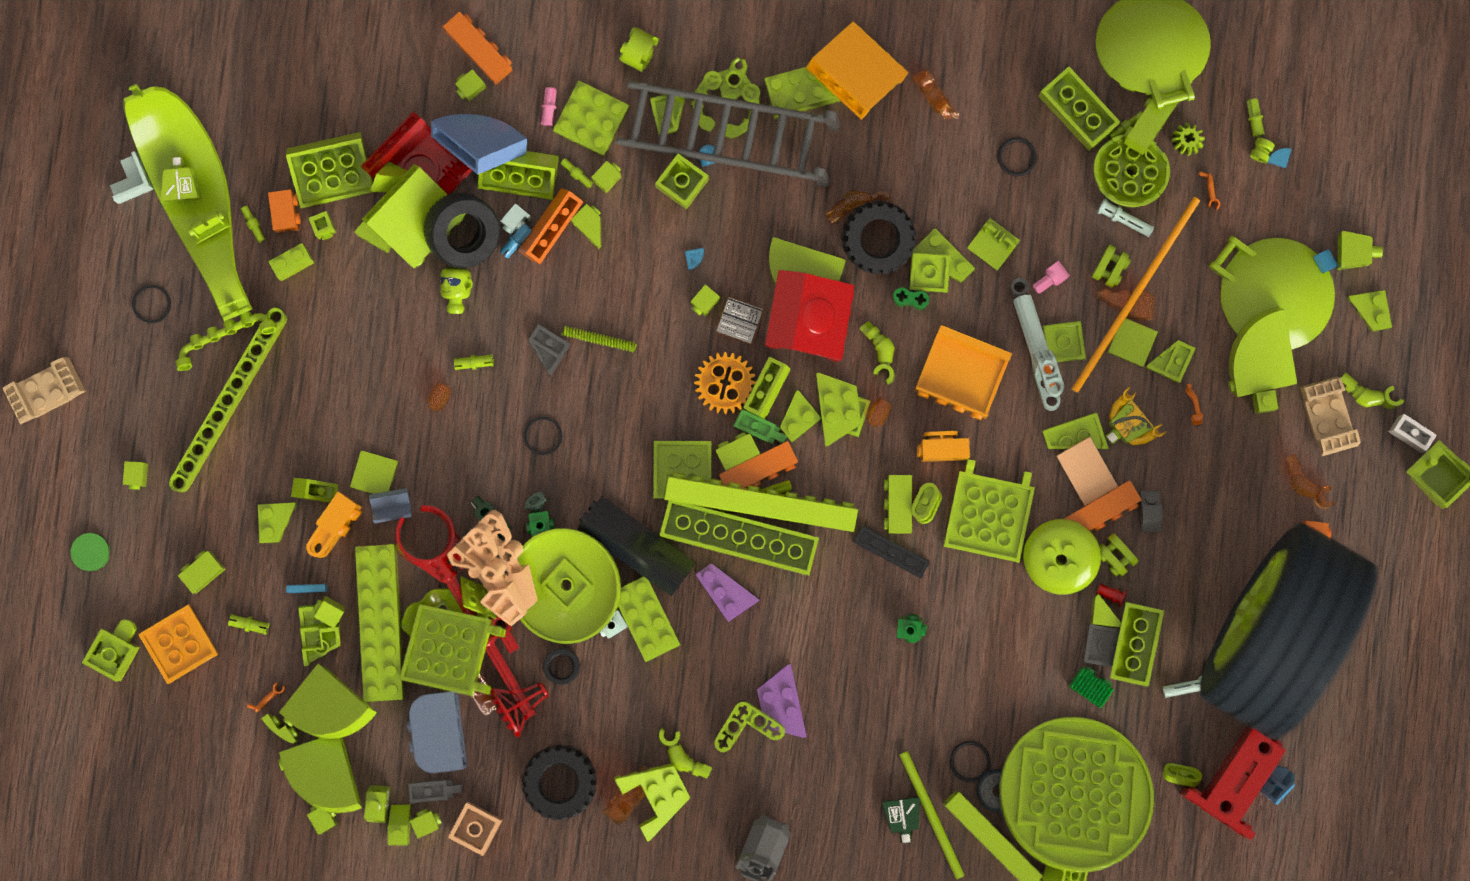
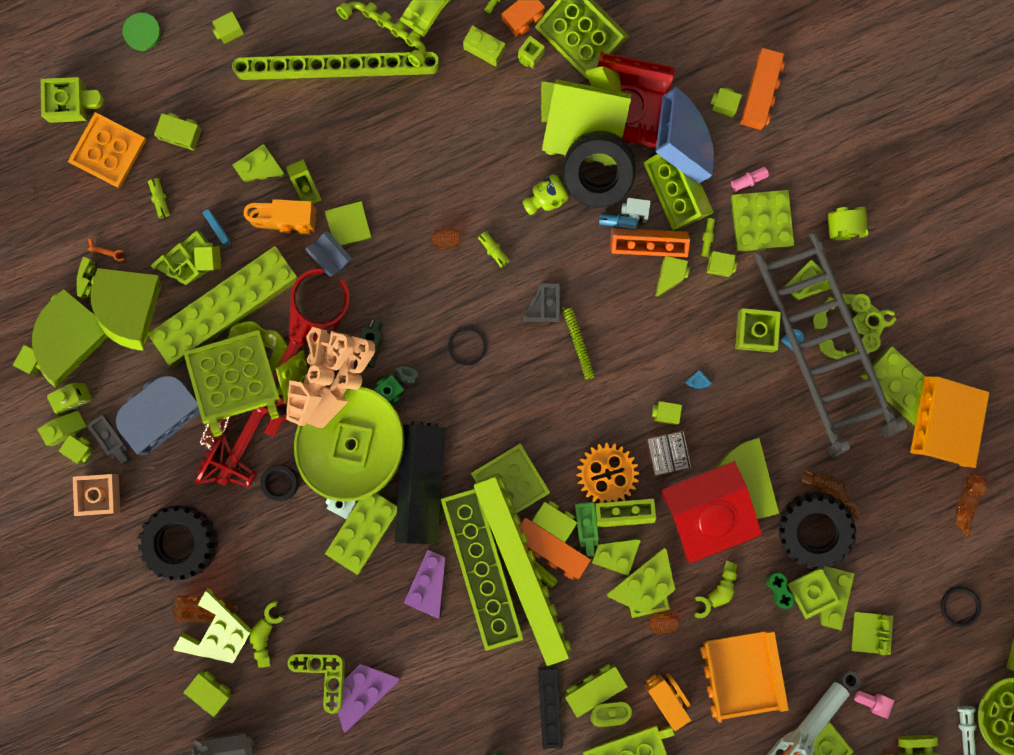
camera: 55 degrees right, 0 degrees up
(702, 833) = (208, 693): none -> lime brick

